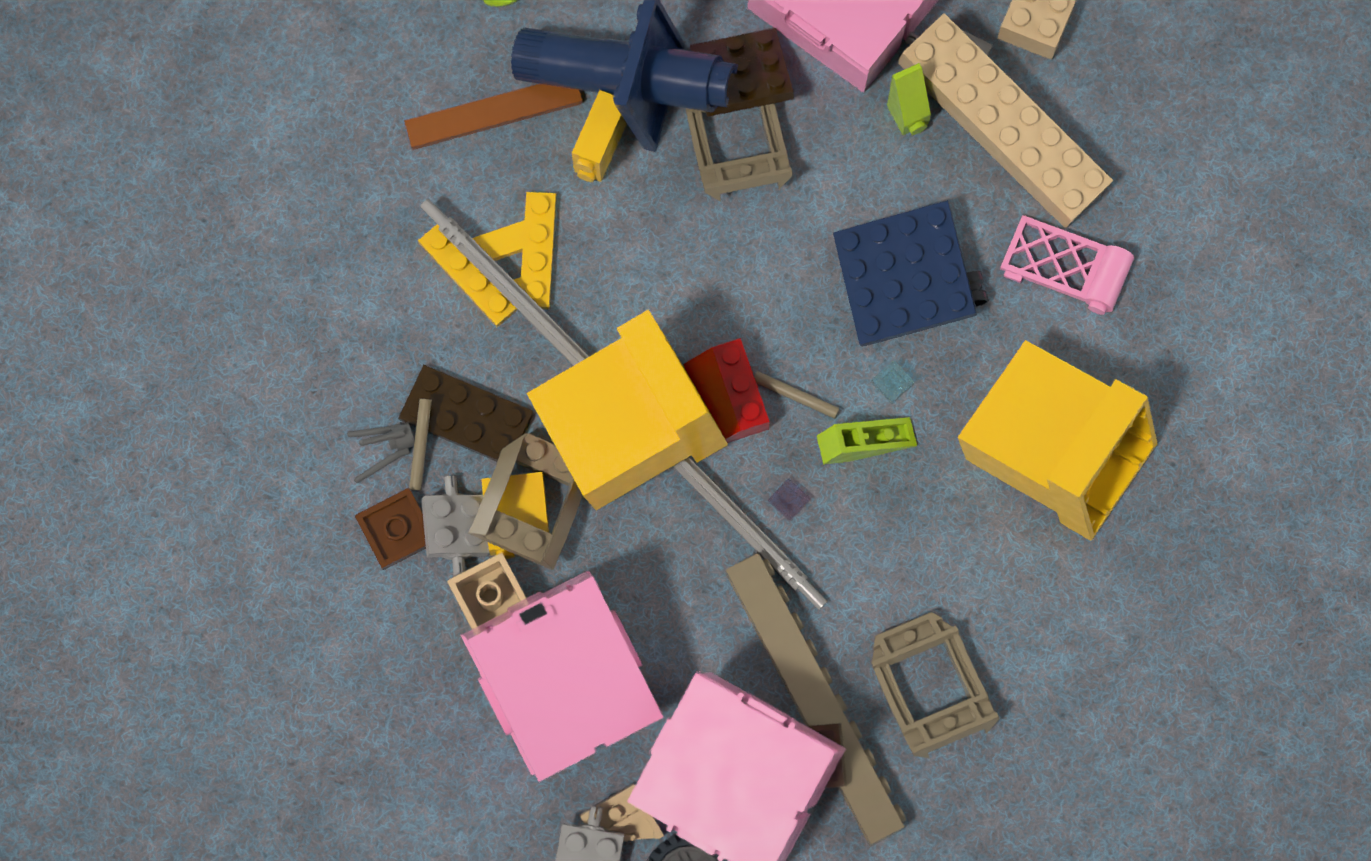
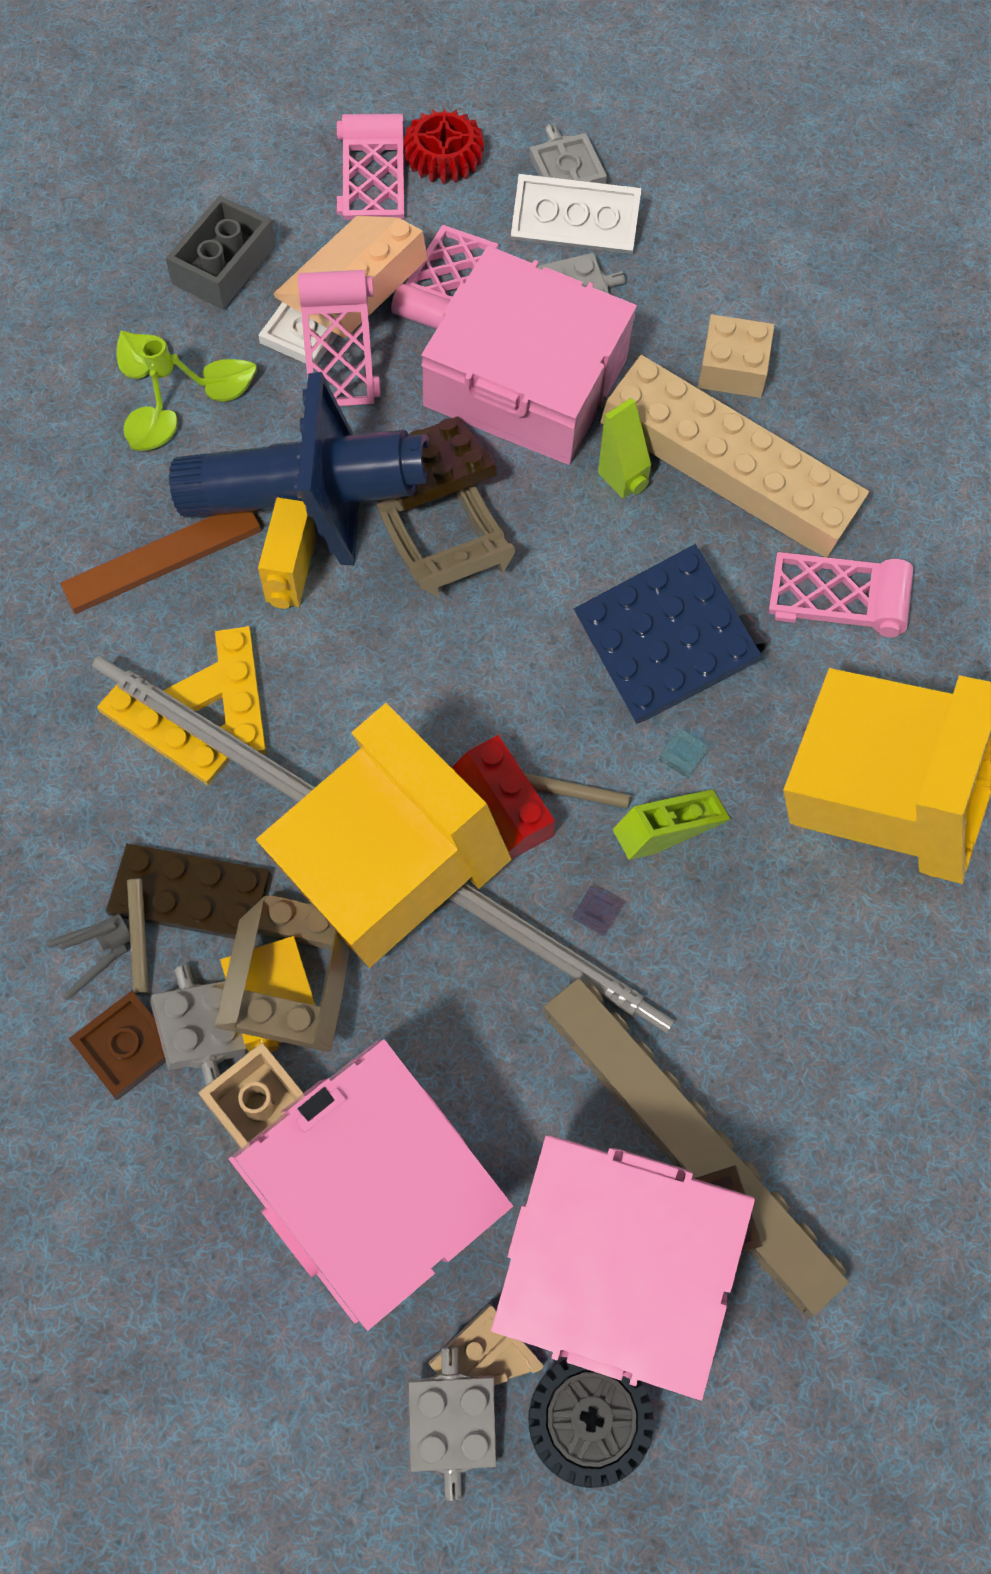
camera: 15 degrees left, 10 degrees down
(948, 724) = (864, 1138): dark tan wedge -> none

